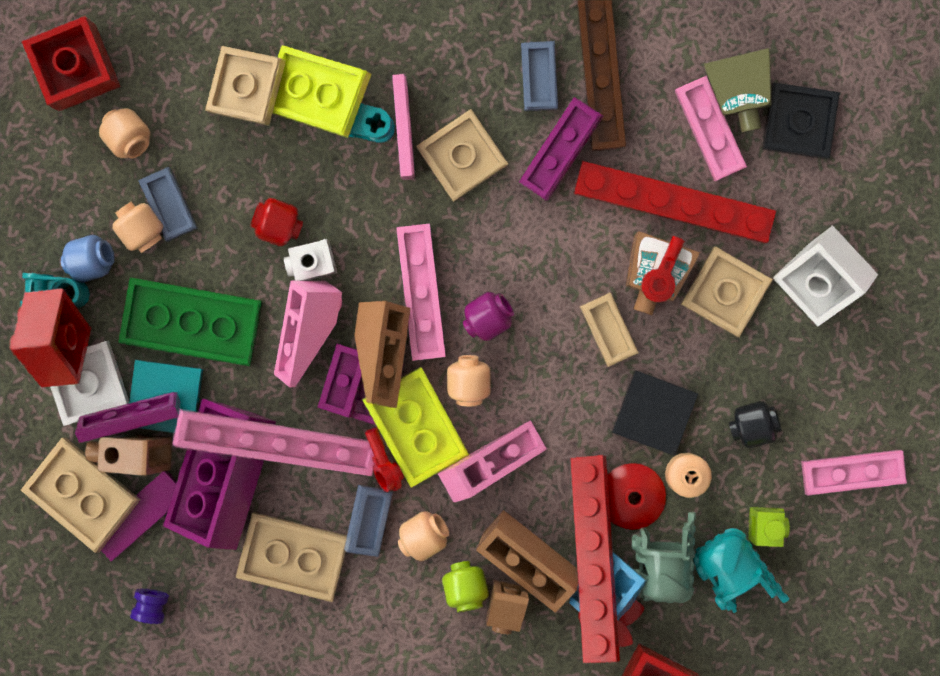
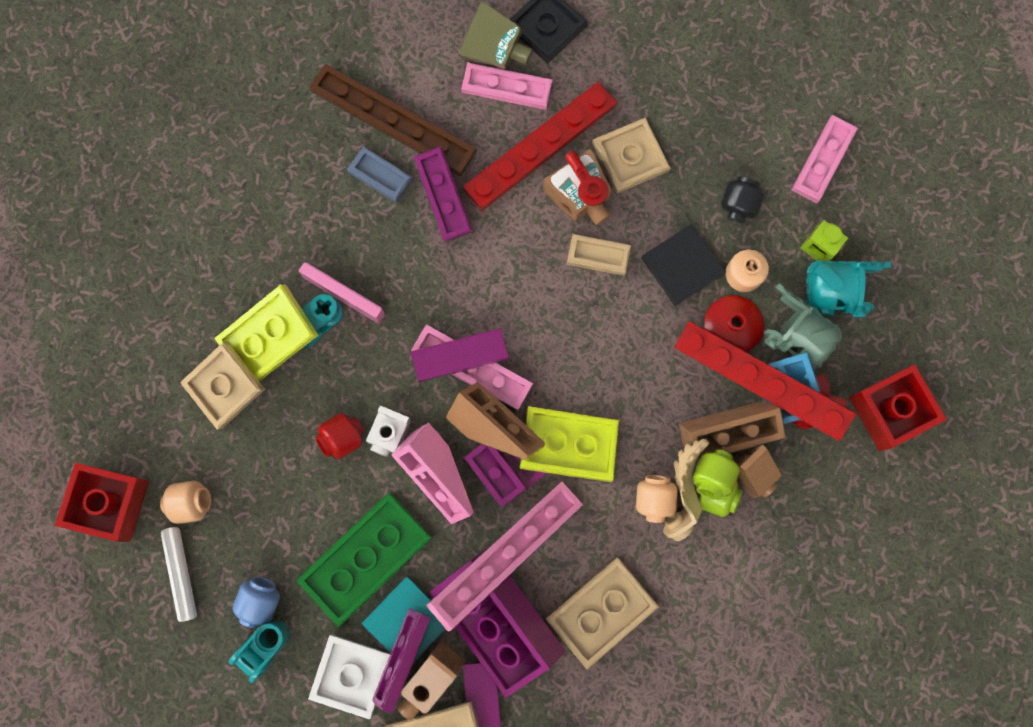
camera: 60 degrees left, 10 degrees down
(51, 338) = (294, 674): red brick -> none
(63, 173) = (178, 574): none -> white axle
(137, 226) = (262, 544): light nougat head -> none
(168, 203) = (263, 510): sand blue tile -> none
(368, 521) = (615, 532): sand blue tile -> none
(386, 473) = (589, 491): red plate -> none
(417, 573) = (682, 523): none -> tan plant
(421, 274) = (459, 355): none -> magenta tile
(462, 155) = (394, 268): tan tile -> none
(468, 381) = (563, 379): light nougat head -> none
(475, 575) = (716, 474): none -> lime head
(488, 316) = (525, 331): magenta head -> none
(491, 462) = (636, 407): bright pink slope -> none
(826, 276) = (670, 80): white slope -> none

